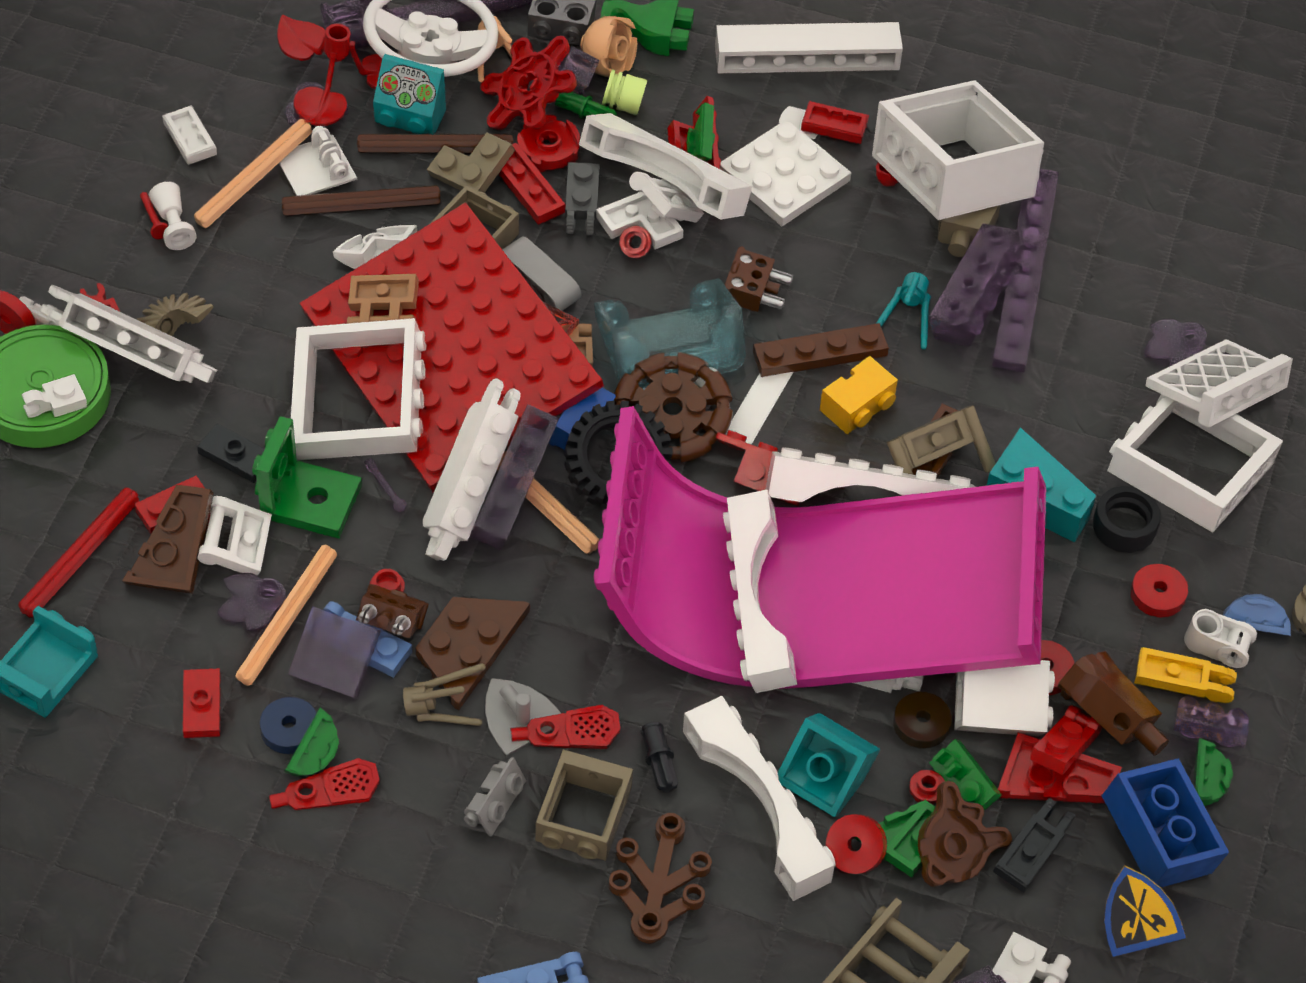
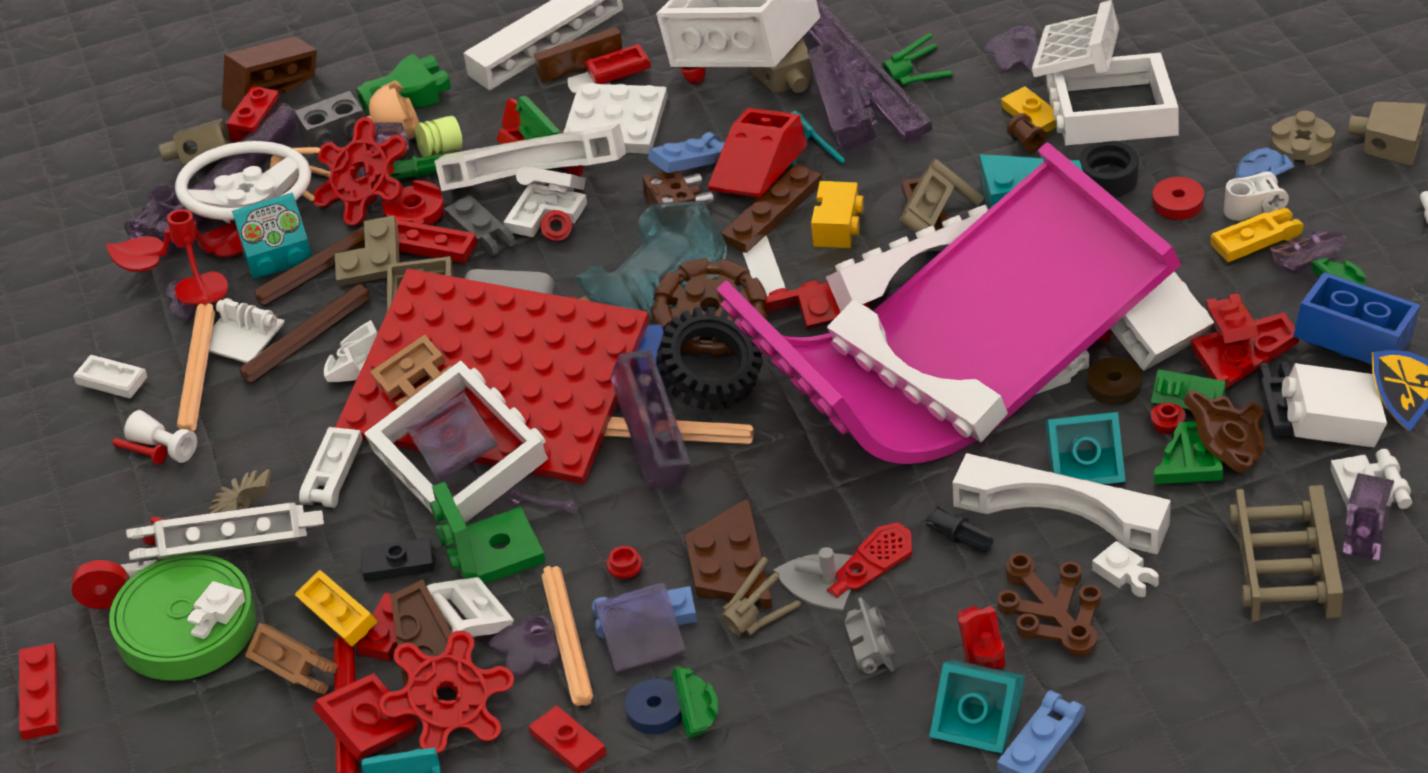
camera: 30 degrees left, 10 degrees down
(77, 571) = (357, 719): none -> red plate
(79, 480) = (288, 657): none -> medium nougat hinge
(144, 573) = (450, 670): none -> red plate
(146, 462) = (336, 608): none -> yellow plate
(262, 335) = (330, 467): none -> white plate
(324, 788) = (736, 721): red piece -> none
(346, 381) = (451, 436): none -> clear purple plate
(392, 611) = (651, 570): reddish brown piece -> none
(470, 470) = (612, 435): white hinge -> none
(511, 918) = (976, 705): none -> teal slope
(562, 866) = (981, 637): none -> red hips
(594, 775) = (915, 576): dark tan window -> none
(750, 890) = (1123, 566): none -> white plate
(801, 252) = (687, 154): none -> medium blue plate
(803, 88) = (572, 55): none -> reddish brown plate
(850, 291) = (757, 152): none -> red slope
(872, 839) = (1166, 465): red piece -> none
(1057, 291) = (900, 64): none -> green plant
(1060, 884) = (1334, 405): none -> white brick
(1095, 433) = (1026, 132): none -> reddish brown bush
(1113, 701) = (1237, 276): reddish brown piece -> none
(1125, 407) = (1027, 102): none -> yellow plate

